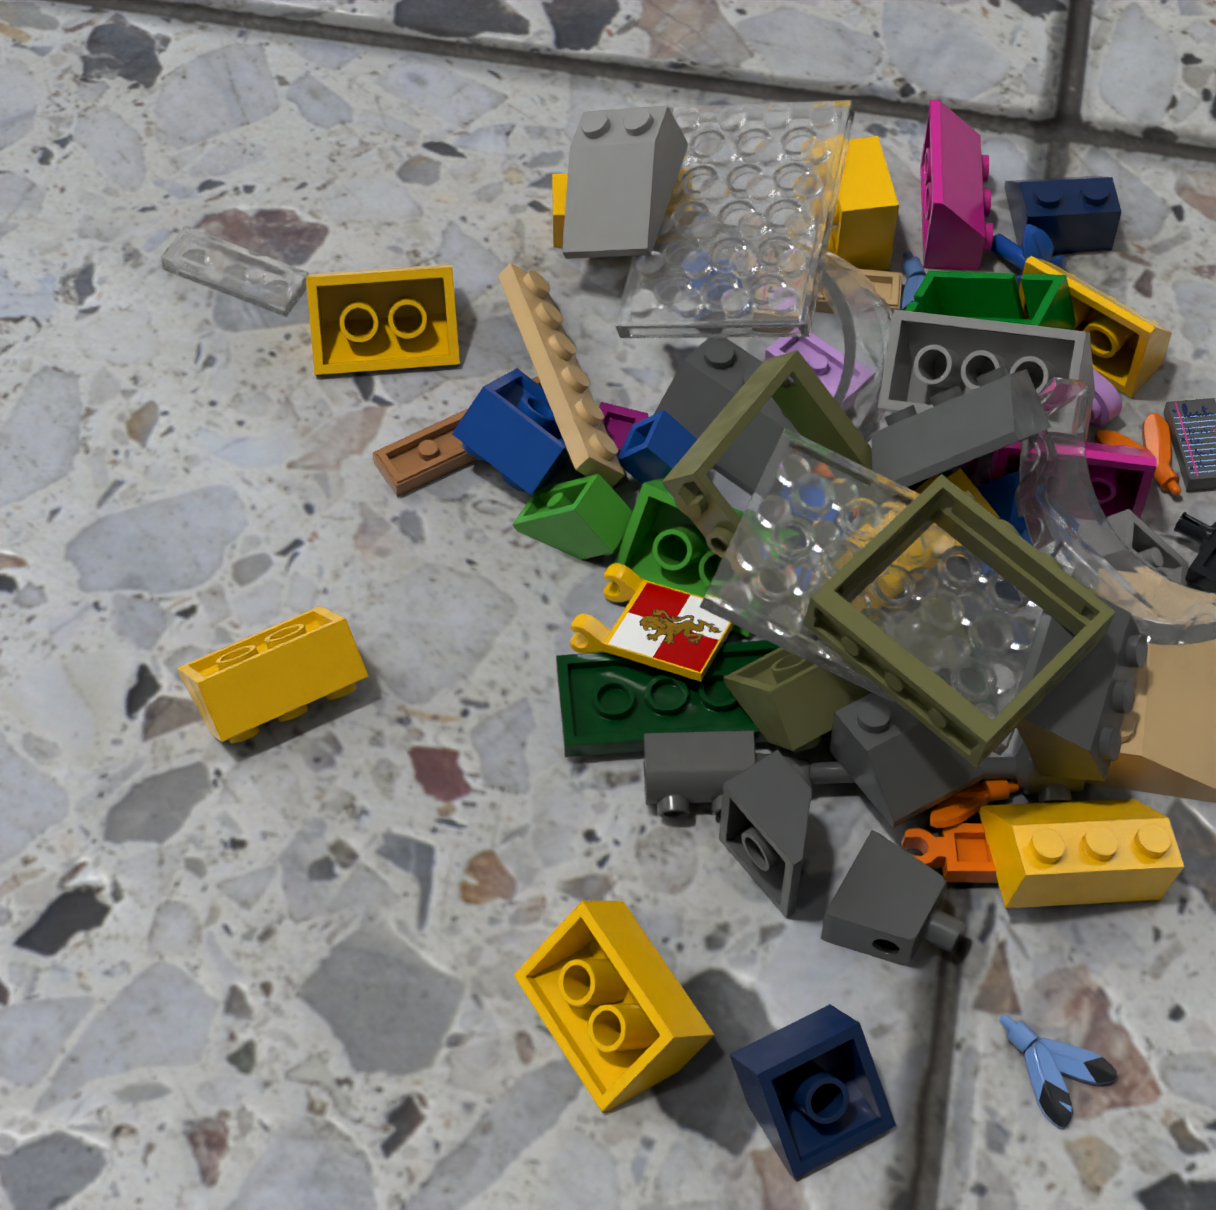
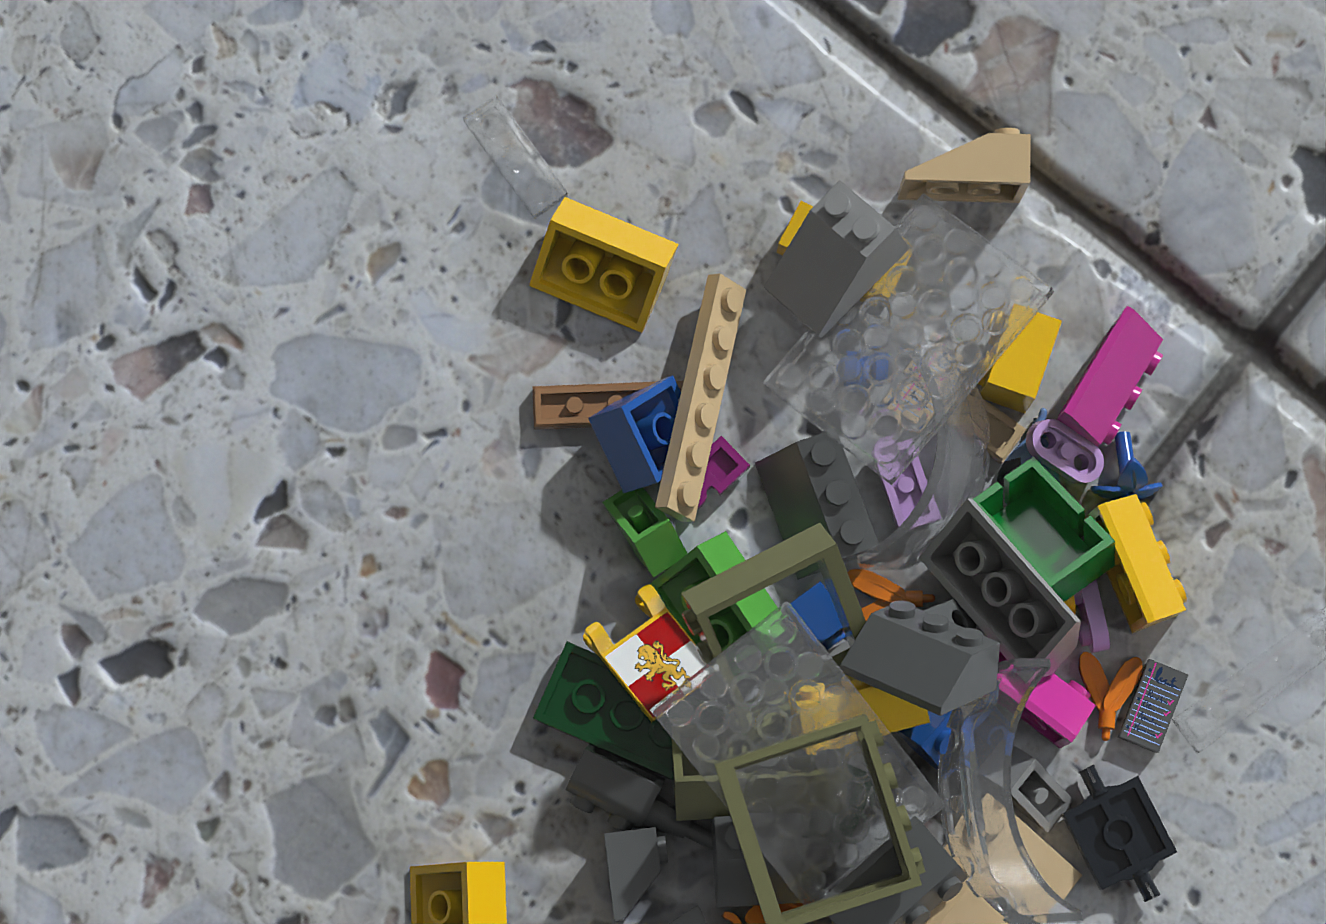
camera: 25 degrees right, 25 degrees up
(274, 674) = (364, 544): yellow slope -> none
(654, 447) = (736, 510): blue brick -> none
(713, 68) = (980, 171): none -> tan slope
(944, 256) = (1062, 450): none -> lavender plate
(1072, 211) = (1192, 433): dark blue slope -> none

